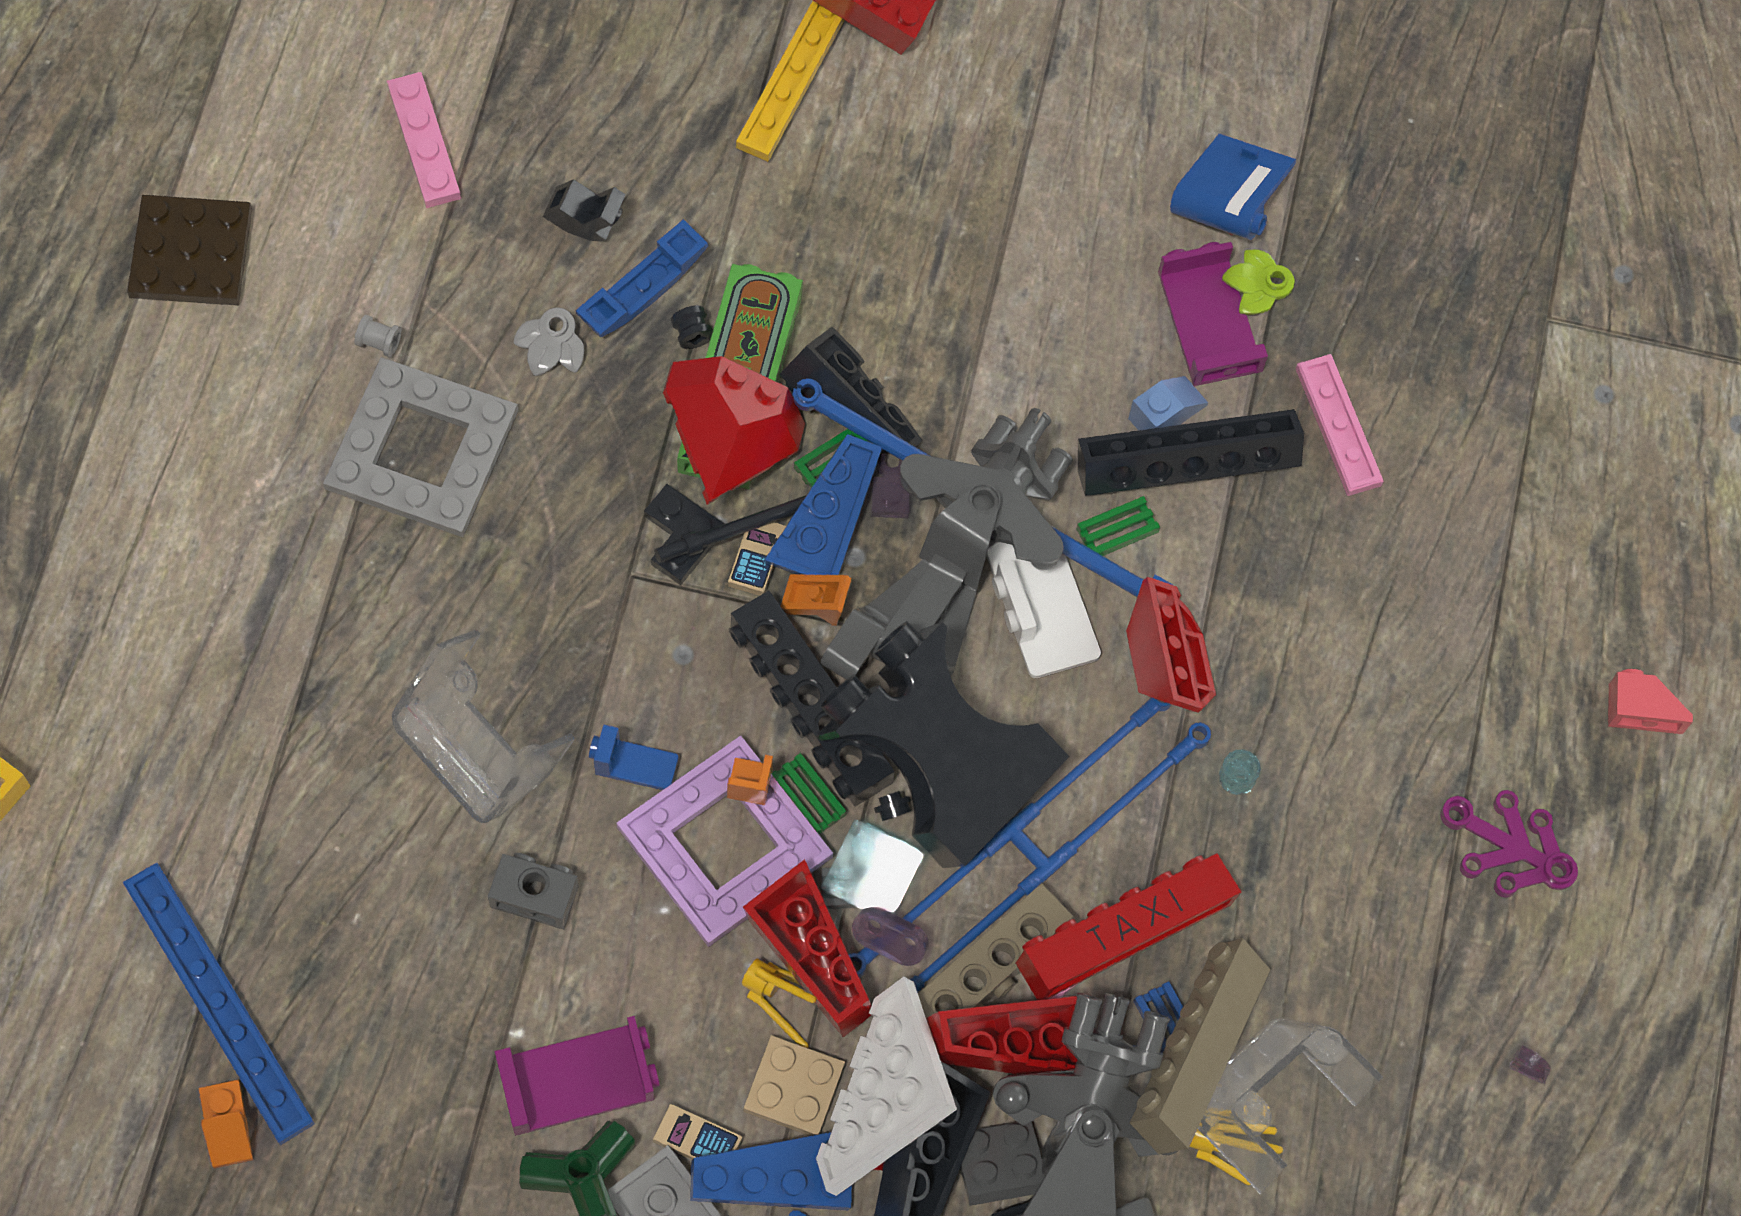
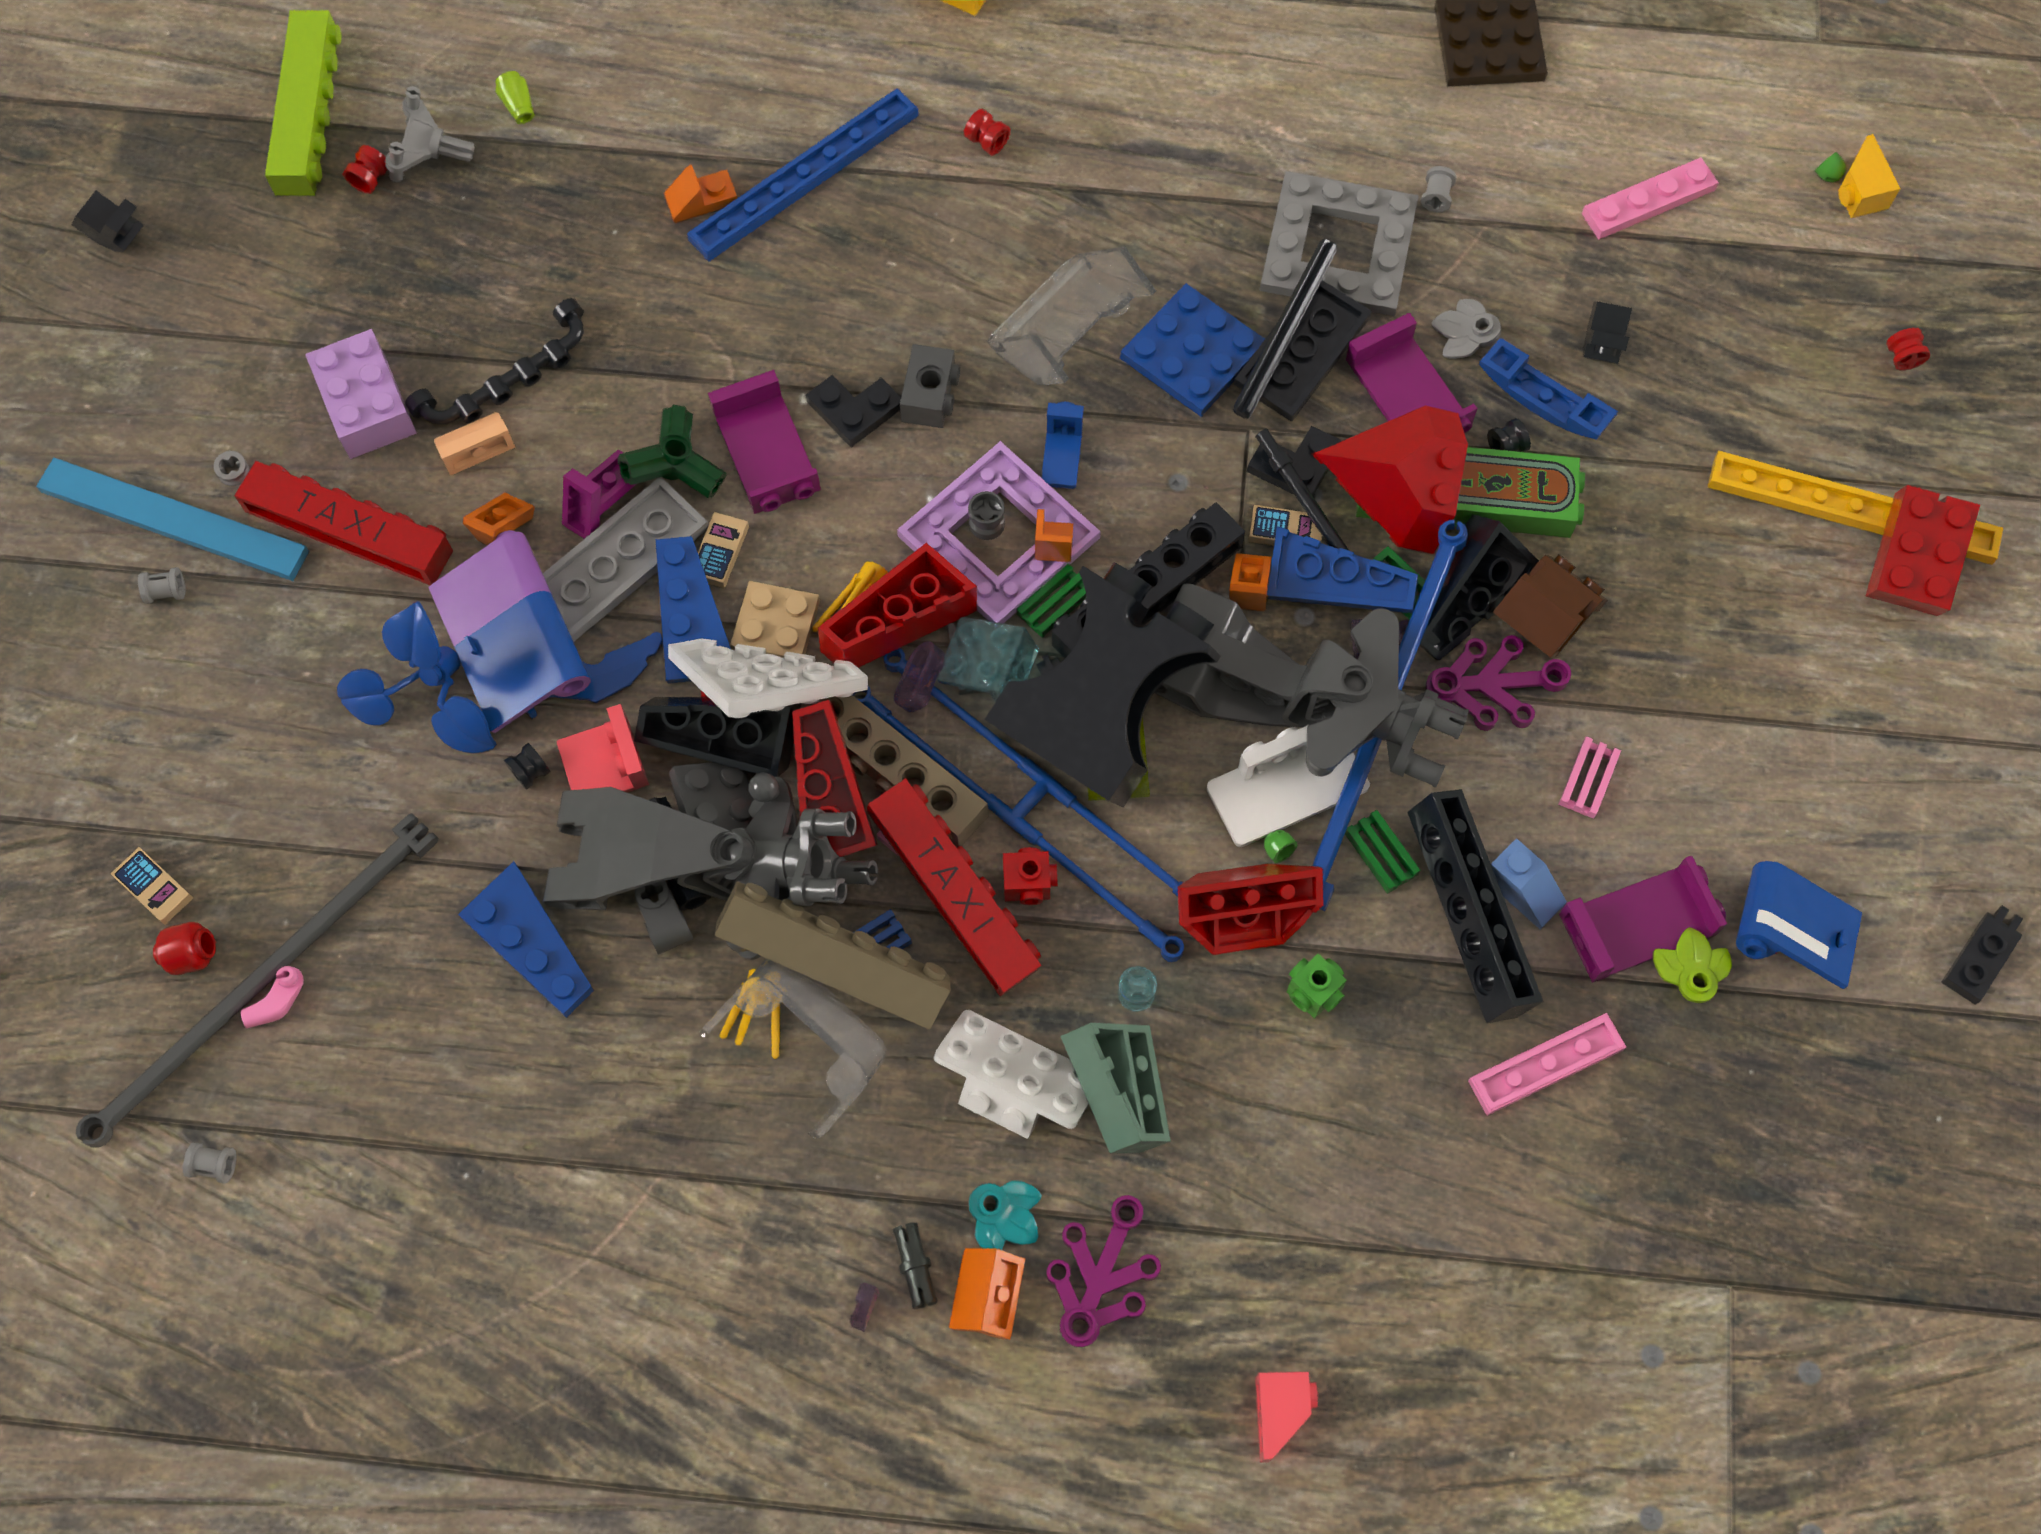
camera: 90 degrees right, 0 degrees up
(208, 788) = (986, 131): none -> red wheel
(528, 613) = (1192, 349): none -> blue plate
(535, 511) = (1285, 329): none -> black axle
(551, 979) = (850, 415): none -> black plate
(553, 501) = (1312, 352): none -> black plate
(608, 411) = (1400, 374): none -> magenta panel
(715, 834) = (986, 506): none -> dark grey wheel
(885, 323) = (1550, 604): none -> reddish brown piece
(953, 397) = (1493, 684): none -> magenta plant
(1069, 319) = (1599, 751): none -> bright pink tile
(1103, 619) = (1279, 845): none -> bright green hinge
(1118, 856) = (1028, 876): none -> red brick
(1254, 606) = (1313, 997): none -> bright green brick
(1267, 46) = (1983, 955): none -> black hinge
(1318, 896) = (1010, 1076): none -> white bracket
(1342, 794) = (1120, 1083): none -> sand green wedge
(1453, 922) = (1010, 1217): none -> teal plate
(1494, 1014) = (915, 1266): none -> pearl dark grey pin
(1524, 952) = (987, 1292): none -> orange panel

